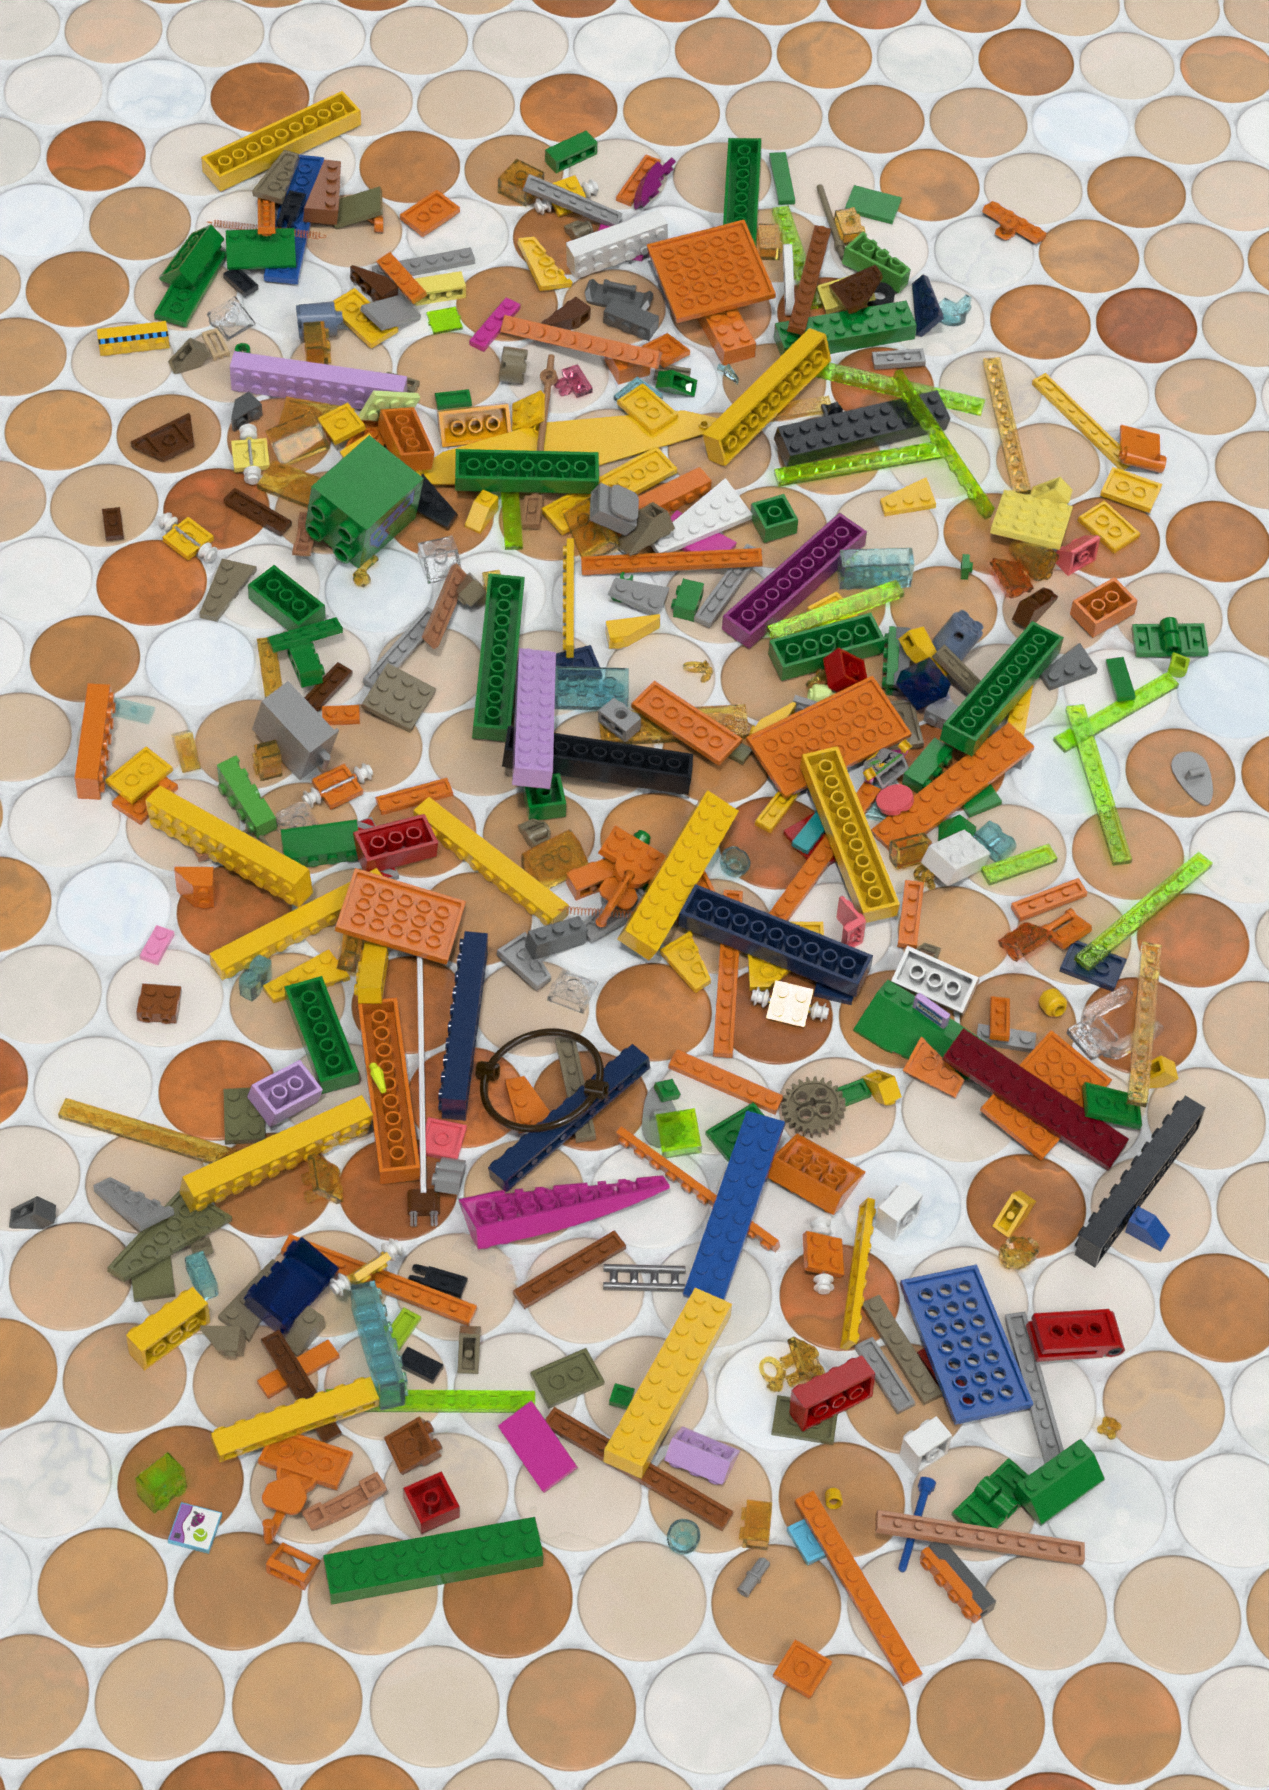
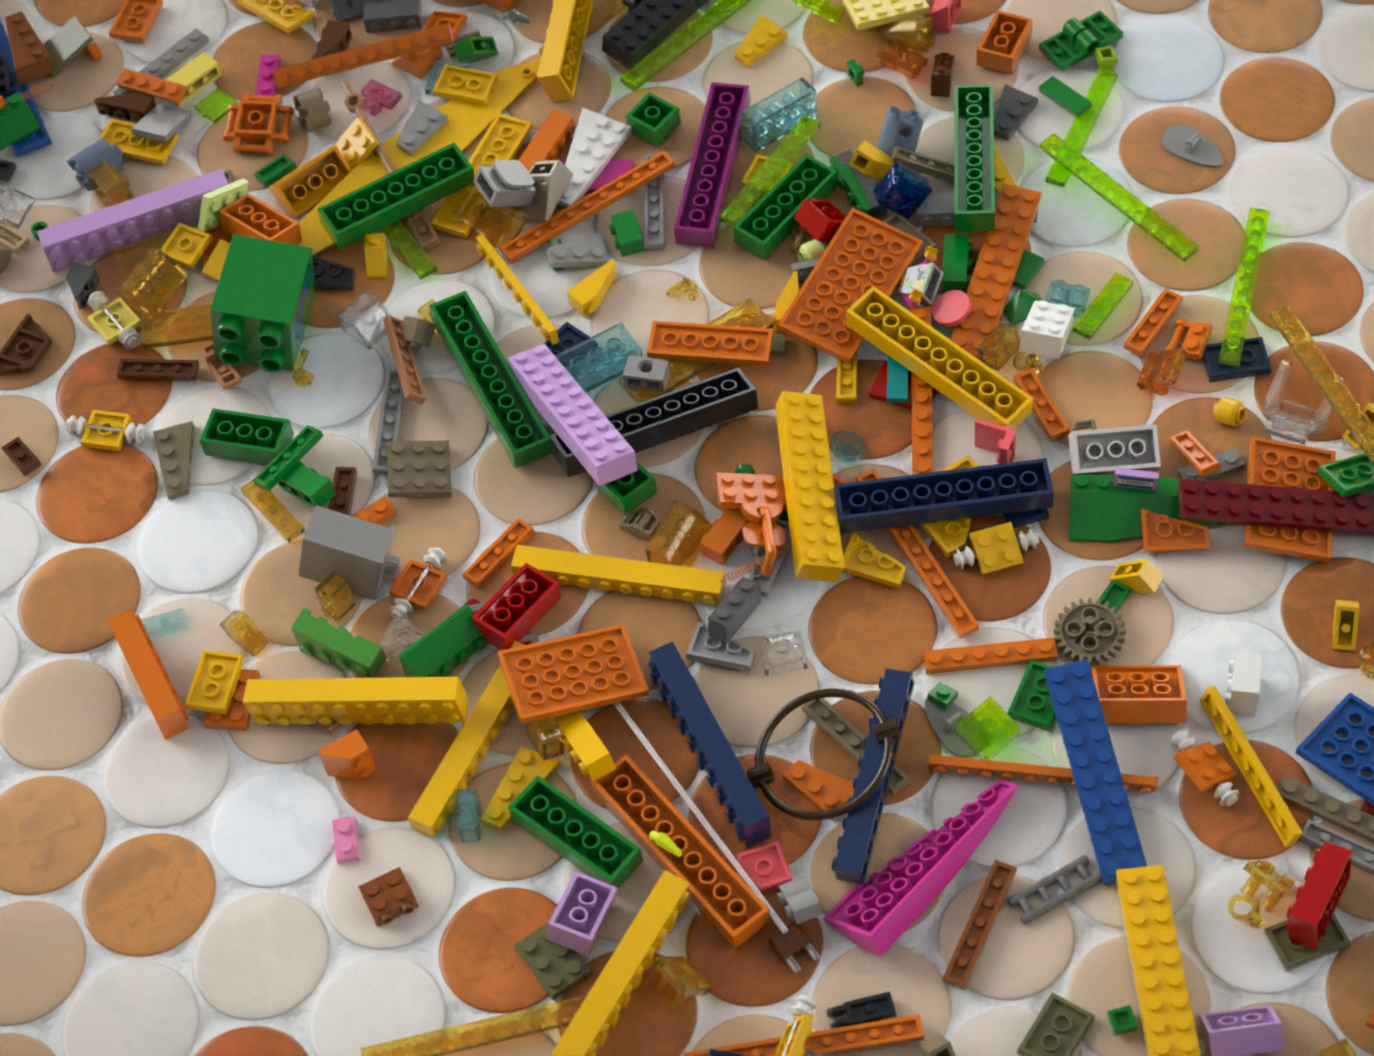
camera: 20 degrees left, 0 degrees up
(463, 351) = (257, 123): none -> orange brick
(587, 425) = (420, 127): none -> light grey wing

